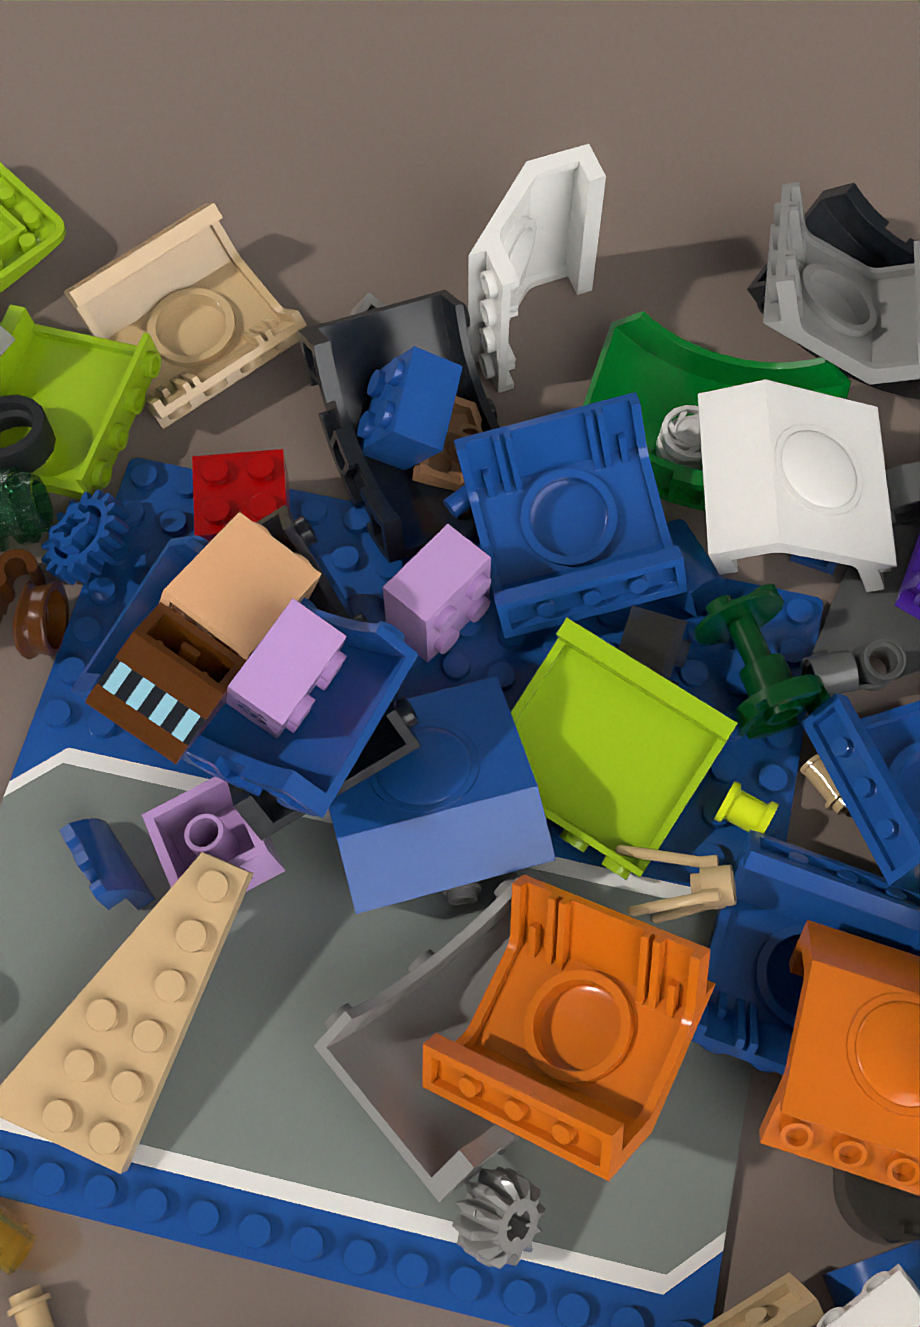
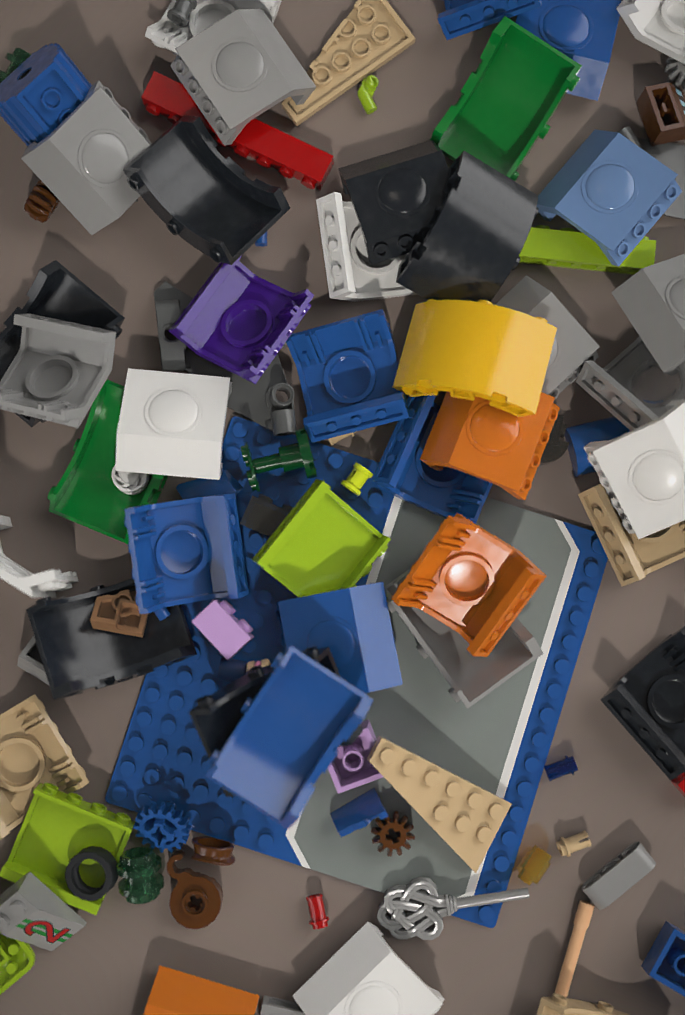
camera: 90 degrees left, 20 degrees up
(46, 934) = (387, 841): none -> reddish brown gear
(166, 682) = (299, 777): reddish brown slope -> none
(195, 1284) = (561, 768): none -> clear blue pin
(235, 483) = (152, 736): red brick -> none
(240, 585) = (246, 737): light nougat panel -> none
(285, 668) = (296, 715): lavender brick -> none
(409, 408) = (108, 637): blue brick -> none
(499, 1217) = (546, 625): light grey gear -> none
(710, 888) = (399, 505): tan plant -> none

